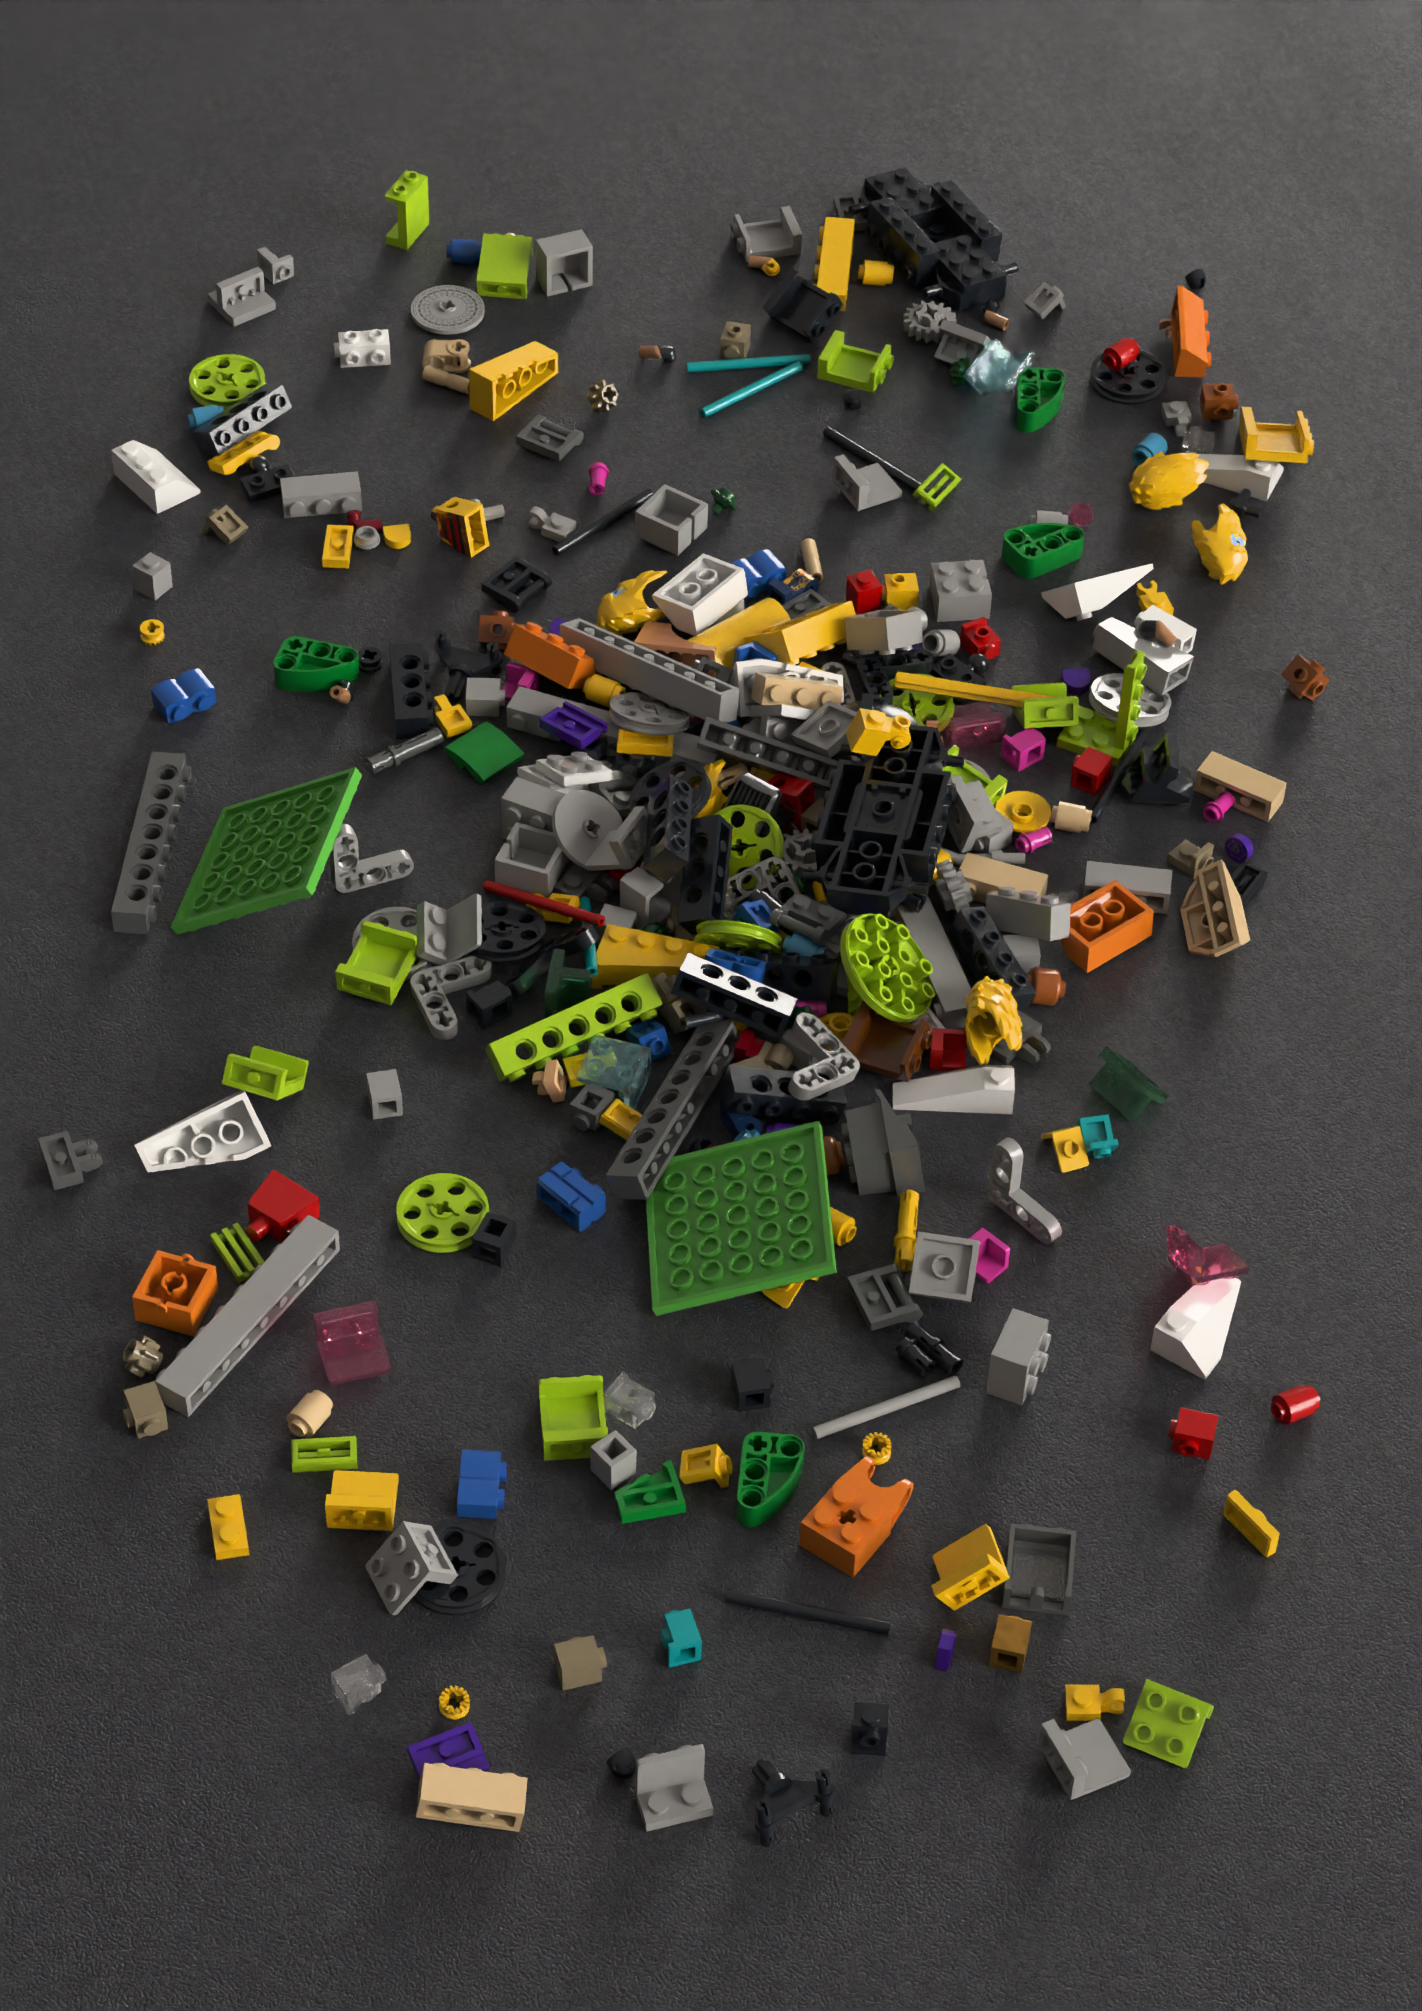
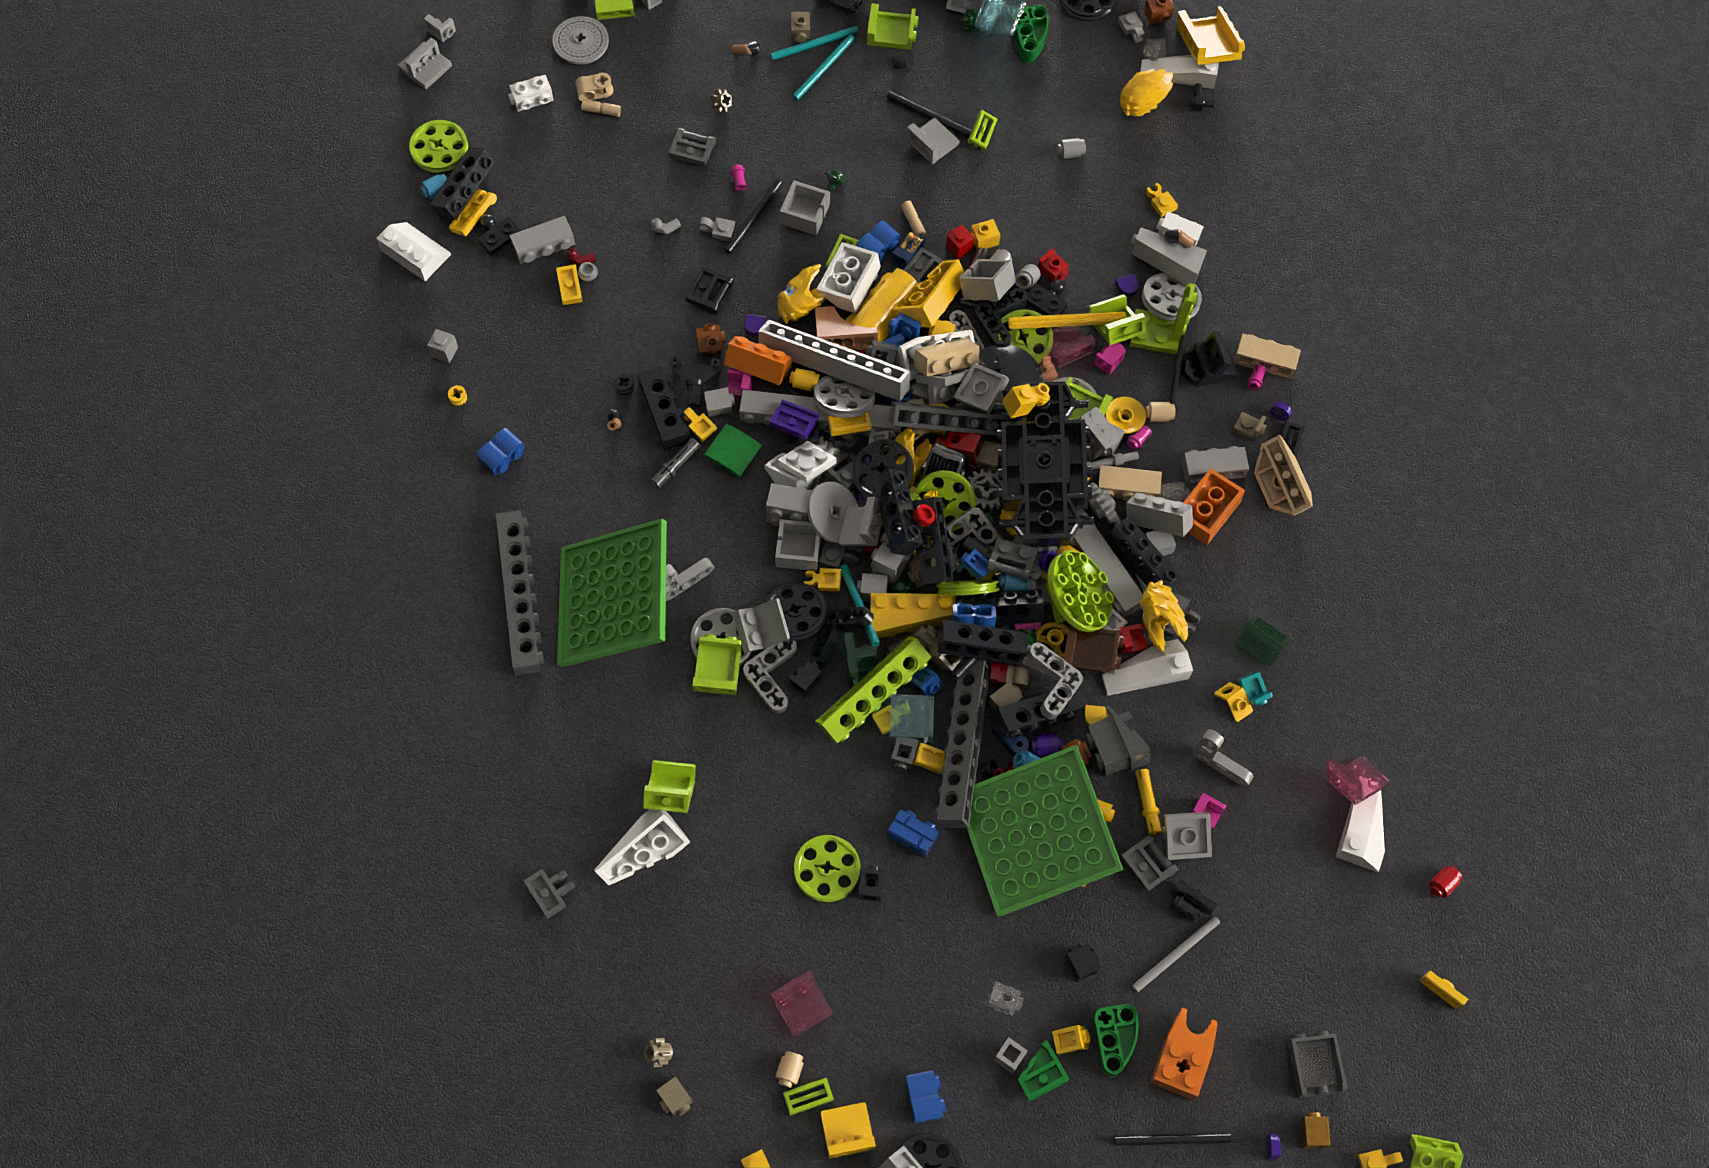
camera: 15 degrees left, 20 degrees up
(175, 1293) = (665, 993): orange brick -> none
(225, 524) = (480, 284): dark tan bracket -> none
(228, 1235) = (682, 926): lime tile -> none
(247, 1315) = (720, 995): light grey brick -> none
(279, 1207) = (713, 897): red torso -> none
(313, 665) = (585, 407): green beam -> none
(384, 1094) = (756, 776): light grey brick -> none
(397, 536) = (608, 263): yellow tile -> none
(462, 525) = (654, 247): yellow torso -> none
(510, 378) = (649, 99): yellow wedge -> none
(544, 903) = (818, 581): red piece -> none
(551, 1081) = (869, 736): light nougat tile -> none
(571, 1416) = (970, 1022): lime panel -> none
(699, 830) = (924, 515): none -> red tile
(883, 1444) = (1182, 984): yellow bush -> none
(960, 590) = (1027, 225): light grey piece -> none
(969, 1568) = (1272, 1079): yellow bracket -> none
(1018, 1357) = (1258, 897): light grey piece -> none
(1041, 547) = (1071, 171): green beam -> none
(1047, 985) = (1184, 565): dark orange head -> none
(1081, 514) = (1090, 132): clear pink plate -> none
(1091, 771) = (1161, 366): red brick -> none
(1092, 594) = (1121, 204): white wedge -> none
(1149, 447) = (1122, 64): dark azure brick -> none
(1193, 1433) = (1386, 925): red brick -> none
(1222, 545) = (1201, 147): yellow head -> none
(1305, 677) = (1287, 249): dark orange brick -> none

